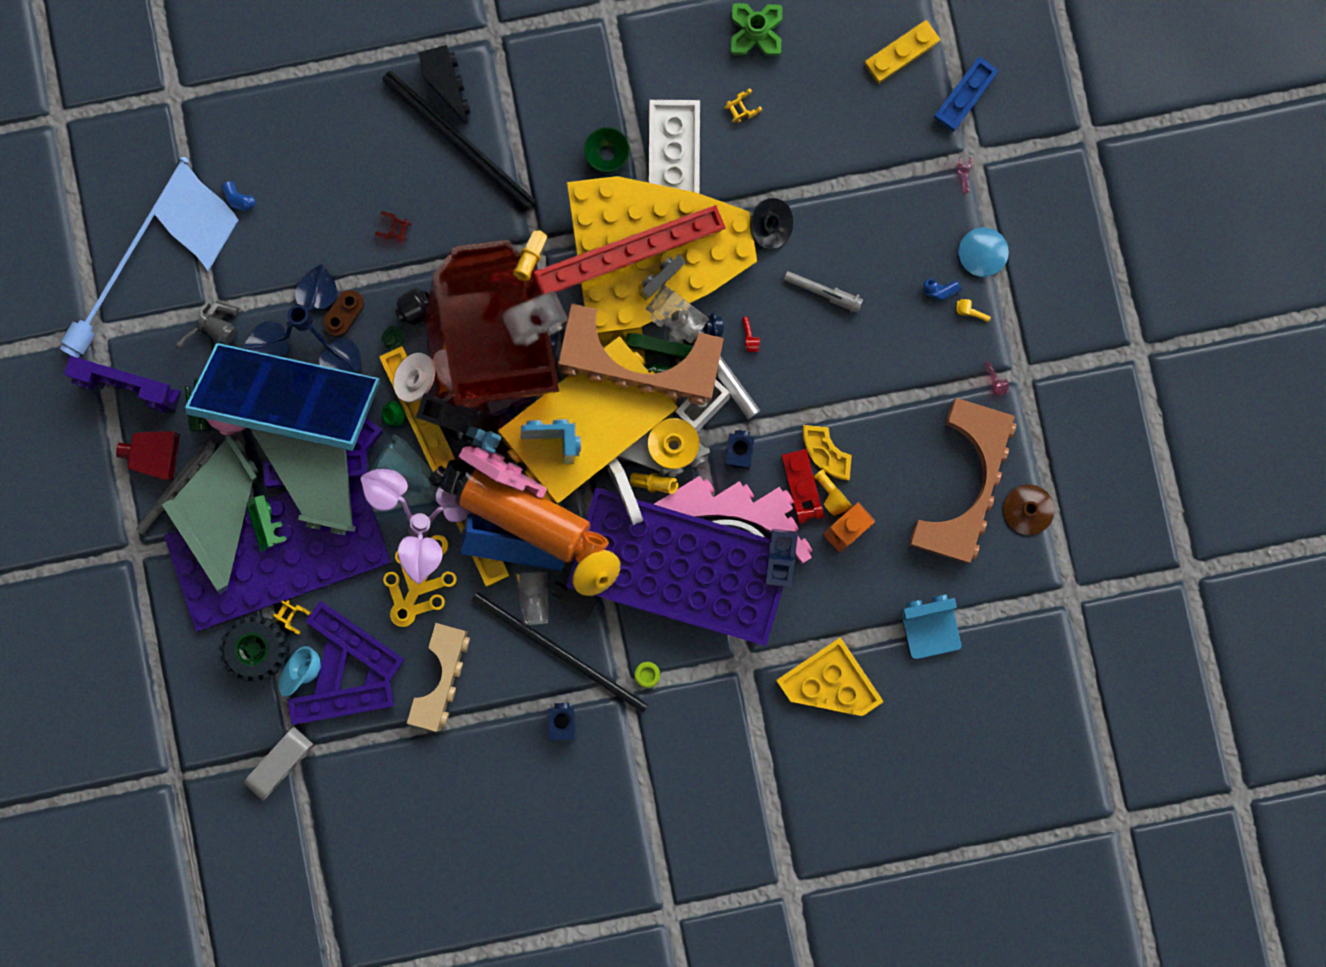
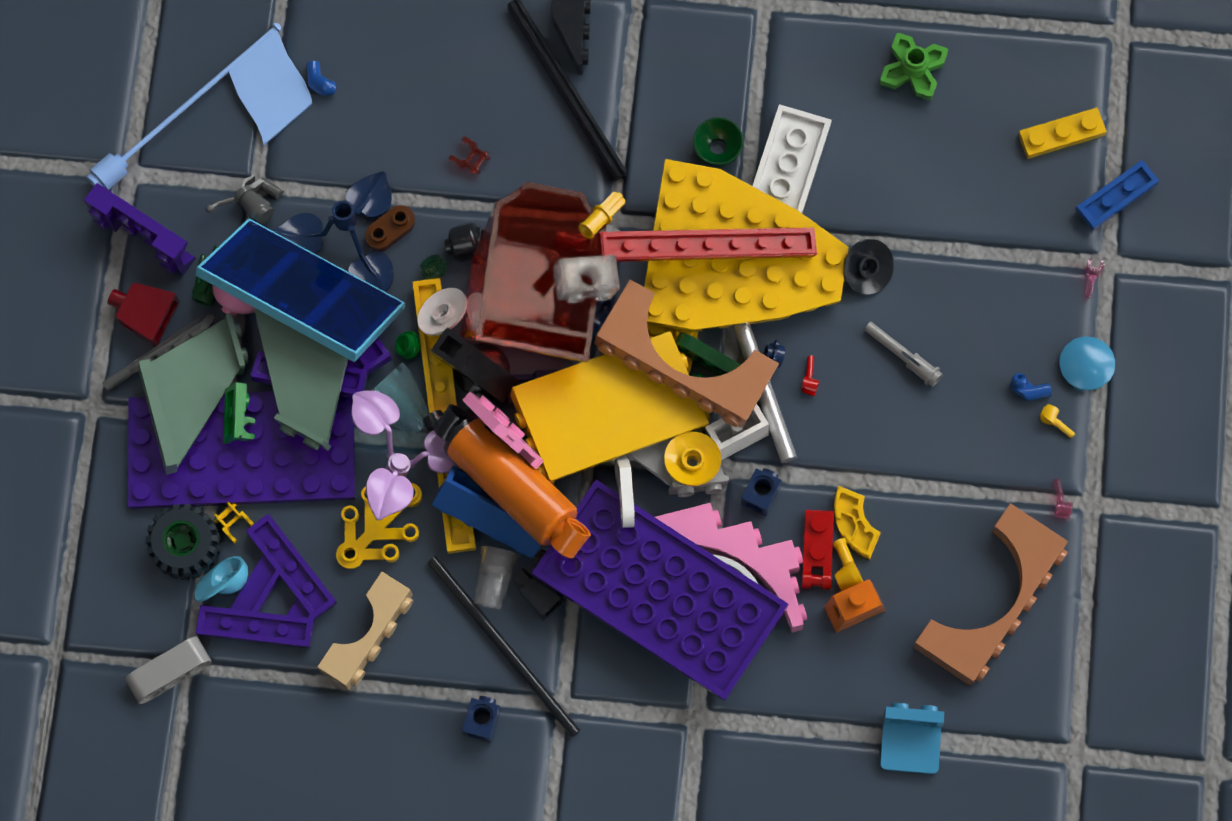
camera: 20 degrees right, 10 degrees down
(484, 439) = (496, 394): medium azure plate -> none
(559, 429) = (569, 401): dark azure bracket -> none
(596, 573) = (564, 556): yellow dish -> none
(647, 674) = (589, 698): lime tile -> none
(654, 483) = (659, 496): yellow axle -> none
(669, 268) = (743, 278): dark grey plate -> none
(690, 319) = (734, 310): clear brick -> none
(730, 105) = (876, 148): yellow piece -> none
(781, 557) = (770, 610): dark blue slope -> none
(831, 682) = (784, 765): yellow plate -> none
(1017, 515) = (1047, 660): reddish brown dish -> none

